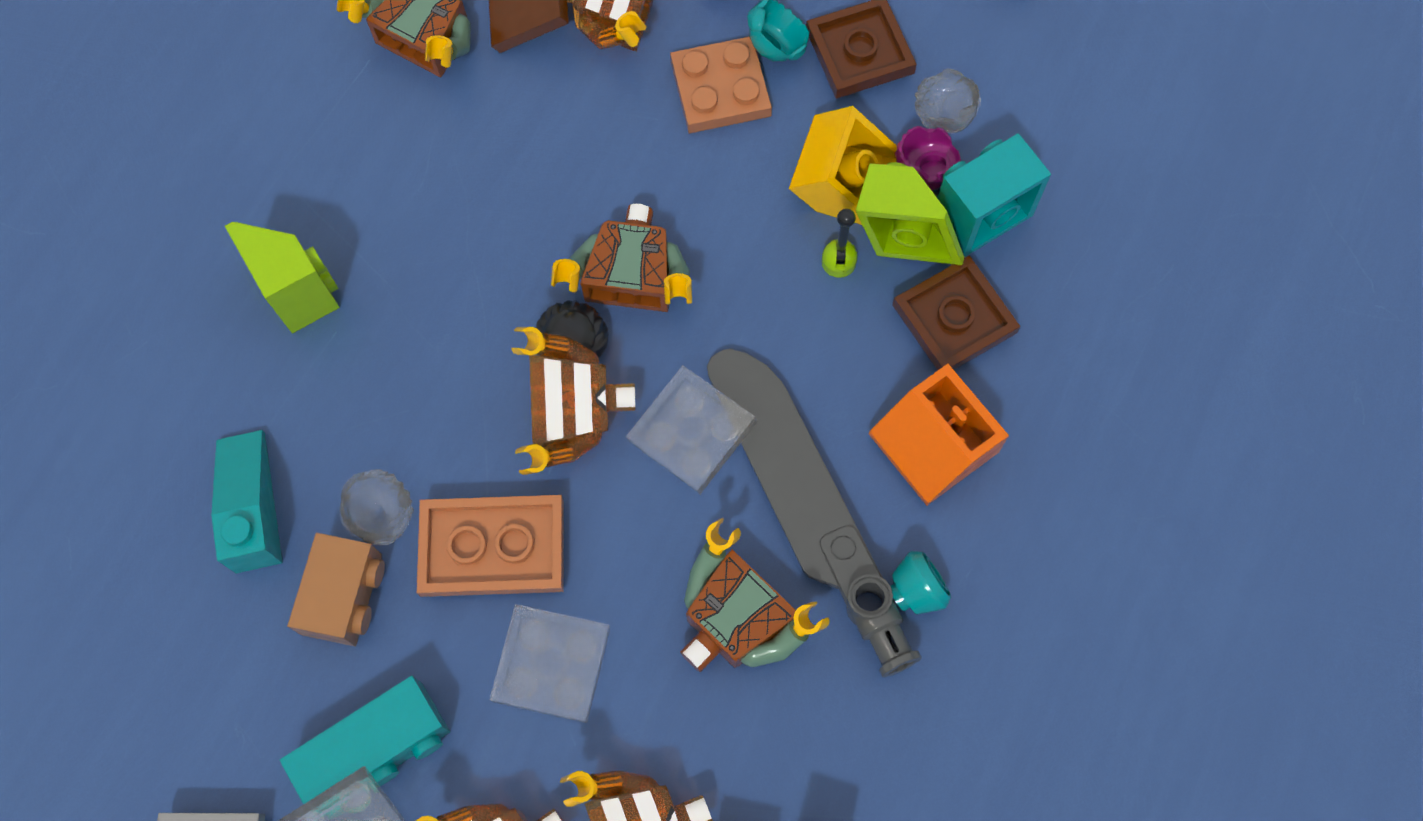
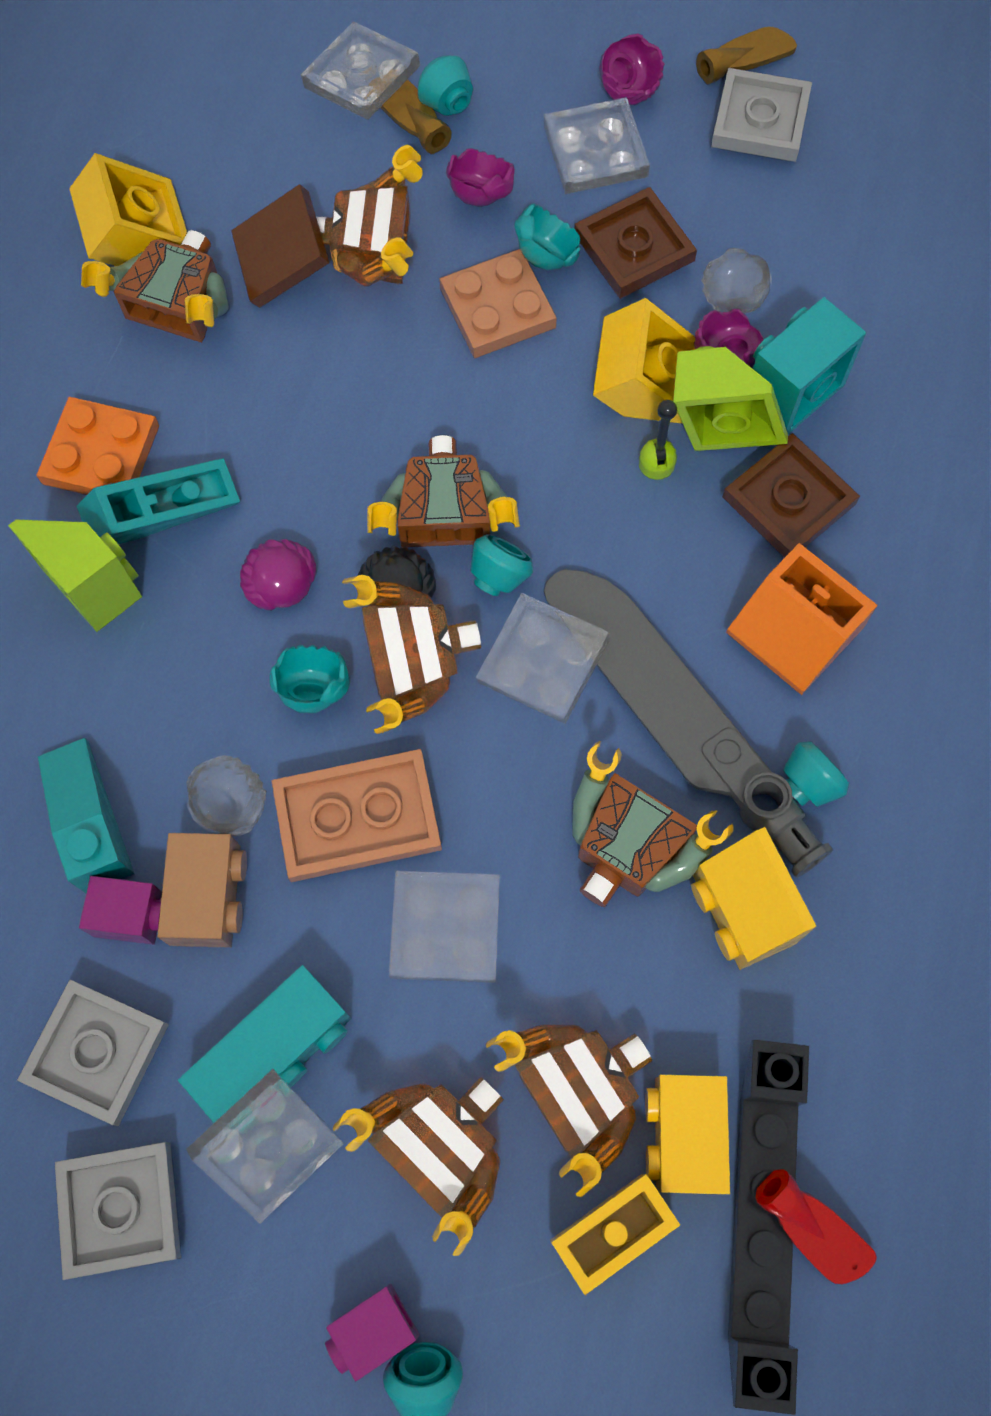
camera: 10 degrees left, 0 degrees up
(212, 720) = (93, 1053): none -> light grey plate
(261, 595) = (121, 910): none -> magenta brick
(326, 164) = (96, 446): none -> orange plate
(368, 222) = (158, 501): none -> teal slope
(464, 308) = (277, 574): none -> magenta hair
(473, 411) = (309, 678): none -> teal hair
(668, 334) = (499, 565): none -> teal cone
(833, 692) = (752, 900): none -> yellow slope

